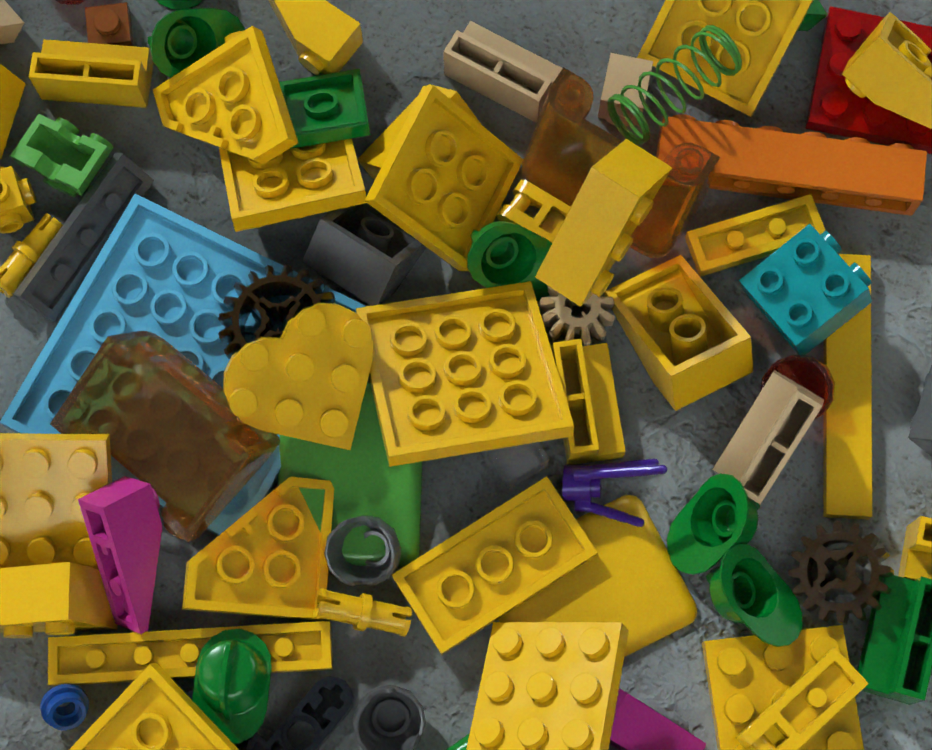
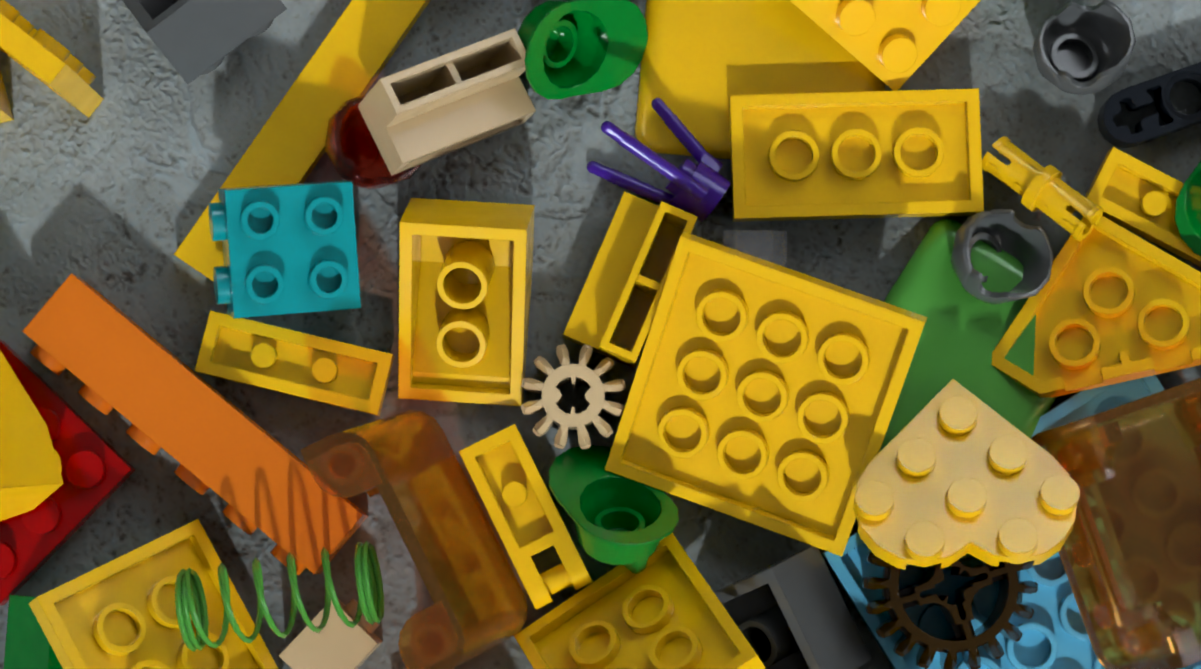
camera: 150 degrees left, 10 degrees up
(601, 222) = (489, 455): yellow wedge -> none

